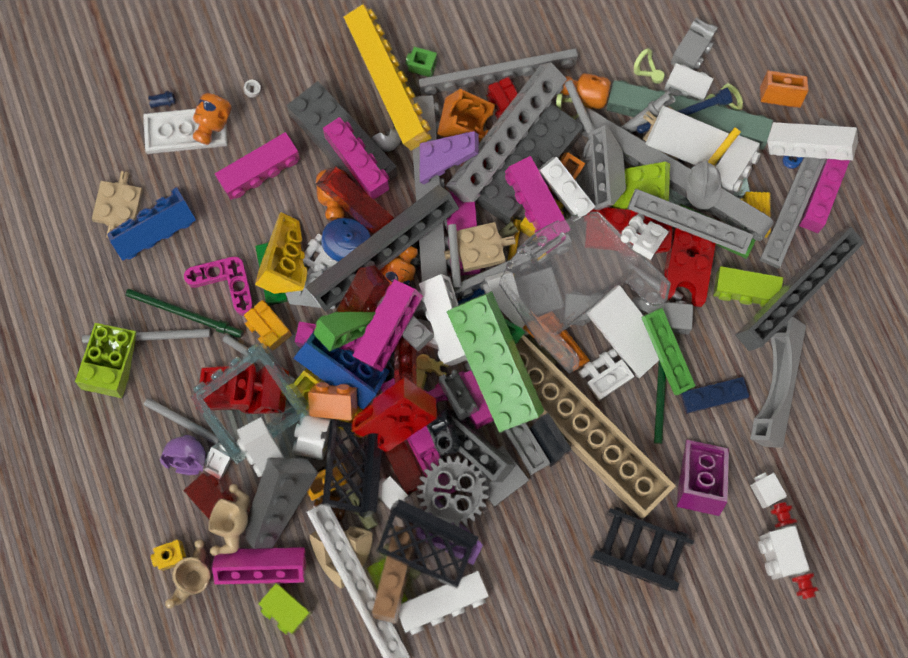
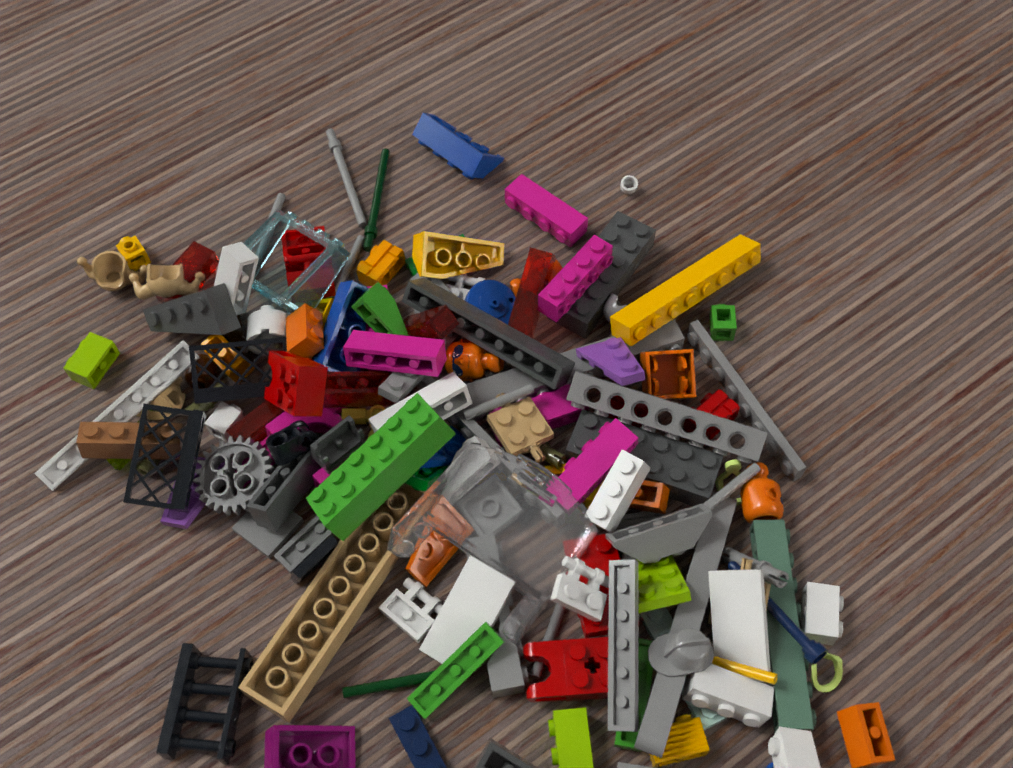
camera: 75 degrees right, 15 degrees down
(107, 361) = (309, 151): lime slope -> none
(116, 202) = (472, 117): tan plate -> none
(162, 99) = (591, 123): dark blue pin -> none
(175, 131) = (566, 148): white tile -> none
(184, 454) = (231, 230): medium lavender cylinder -> none
(210, 116) = (581, 154): orange piece -> none
(225, 274) = (426, 219): dark pink beam -> none
(260, 566) = (130, 327): dark pink brick -> none
(442, 602) = (108, 494): white brick -> none
(656, 75) = (819, 575): yellowish green piece -> none
(695, 44) = (876, 607): light grey hinge -> none

